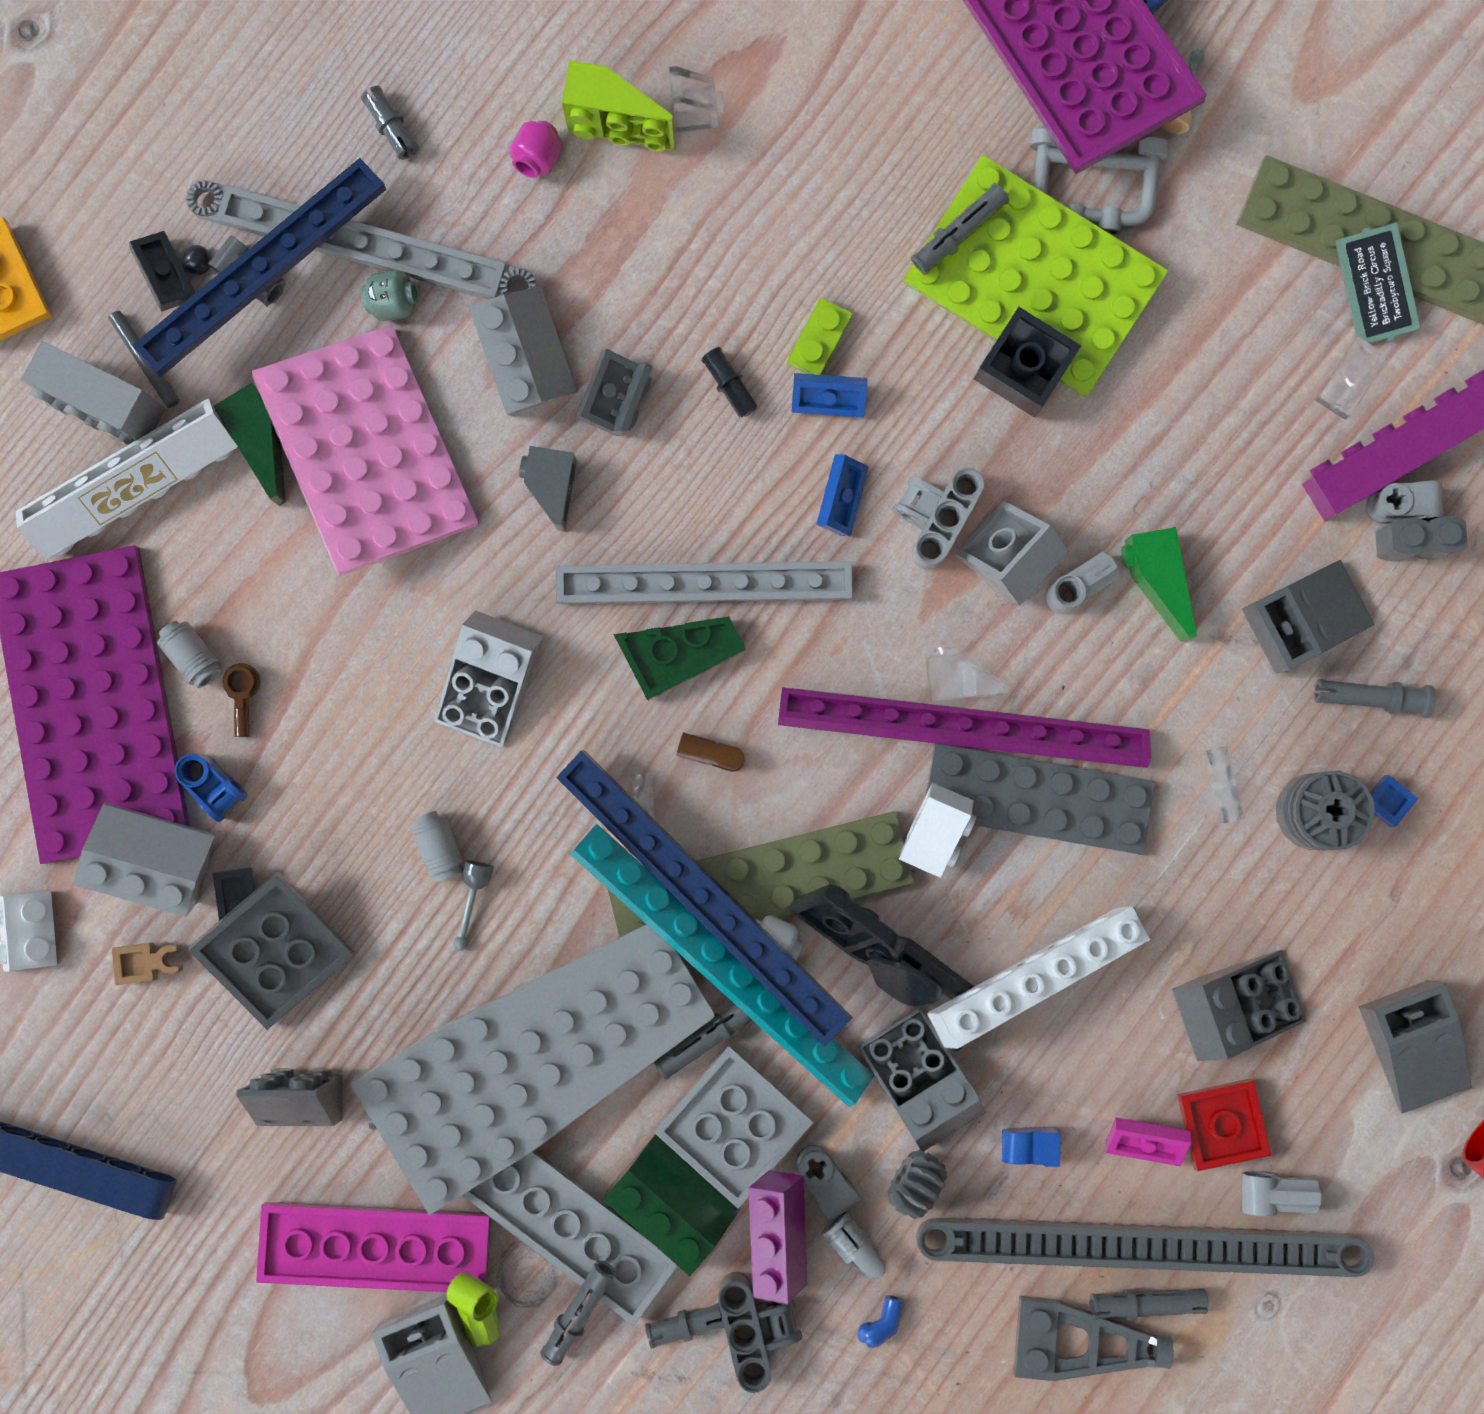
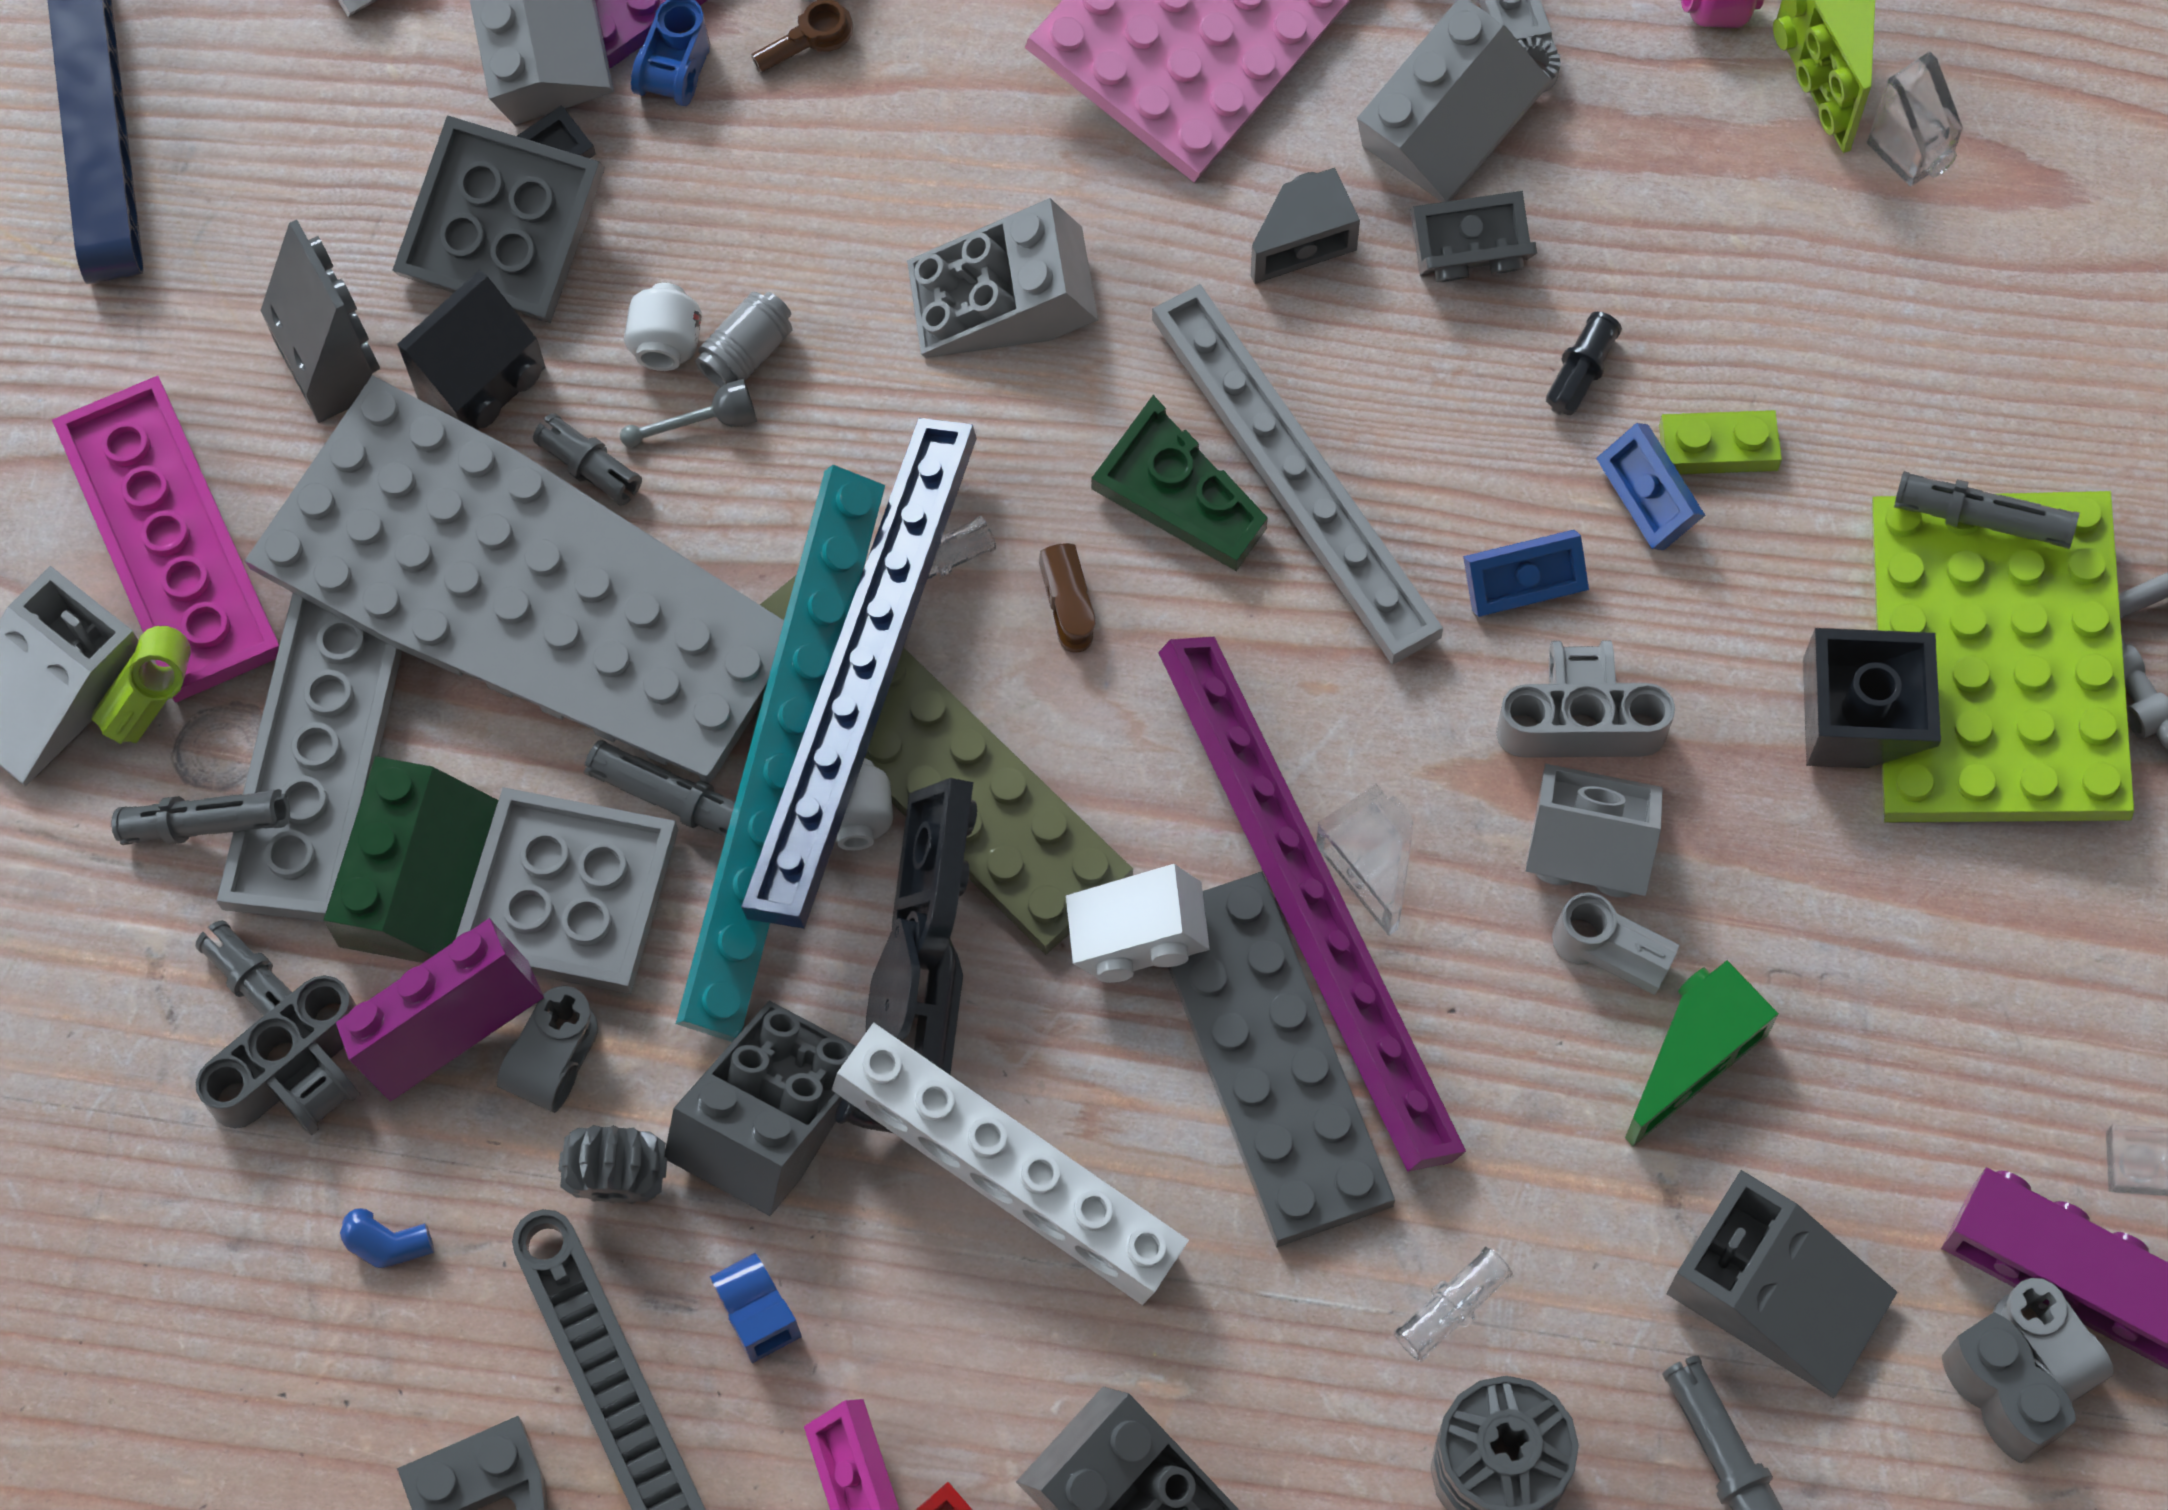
camera: 65 degrees right, 20 degrees down
(140, 962) = (403, 95): medium nougat plate -> none
(364, 1014) = (472, 354): none -> black slope
(403, 890) = (662, 327): none -> white head
(462, 977) = (587, 459): none -> dark grey pin
(853, 1246) = (470, 1149): light grey hinge -> none

